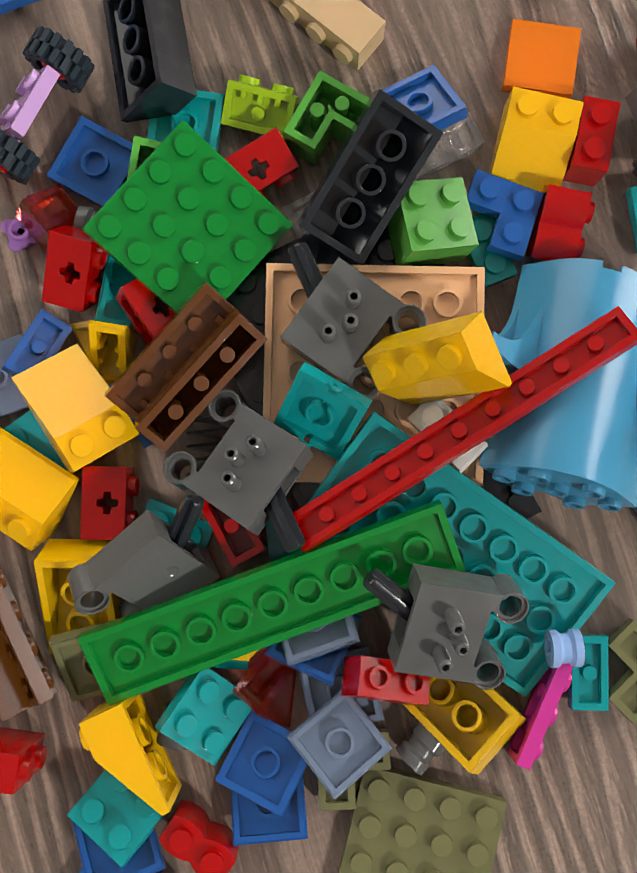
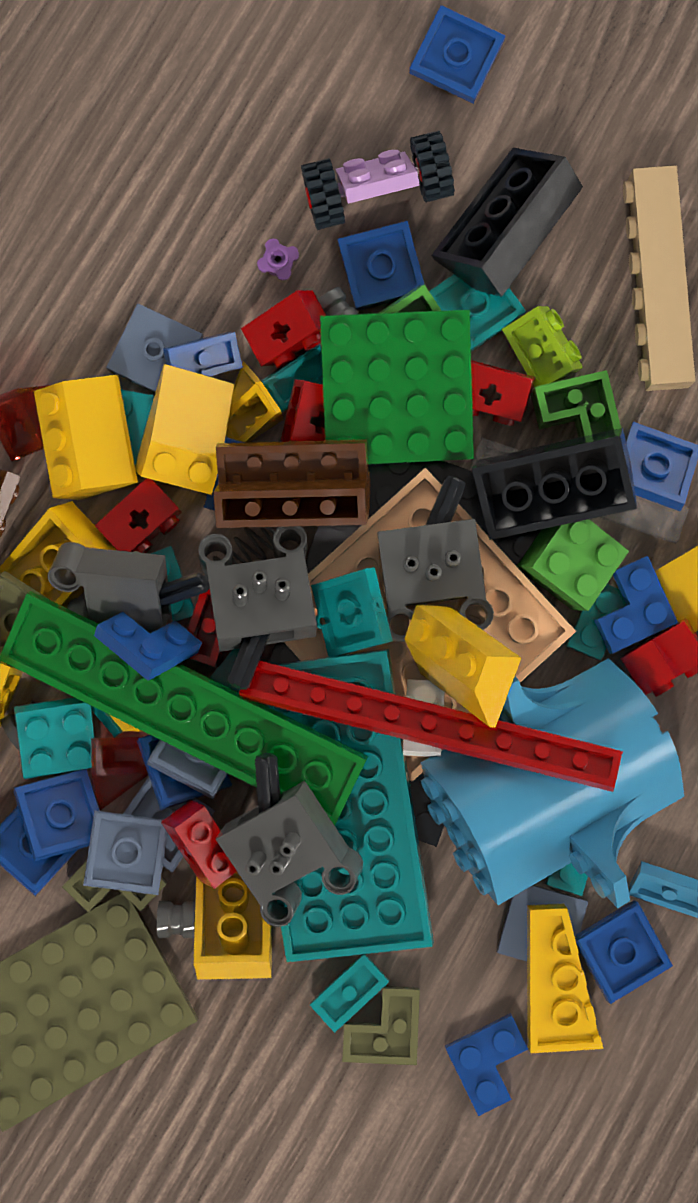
camera: 45 degrees right, 0 degrees up
(45, 212) = (308, 270): clear red slope -> none
(205, 592) = (145, 651): none -> blue plate
(540, 713) = (286, 983): dark pink plate -> none
(564, 648) = (348, 951): light blue wheel -> none

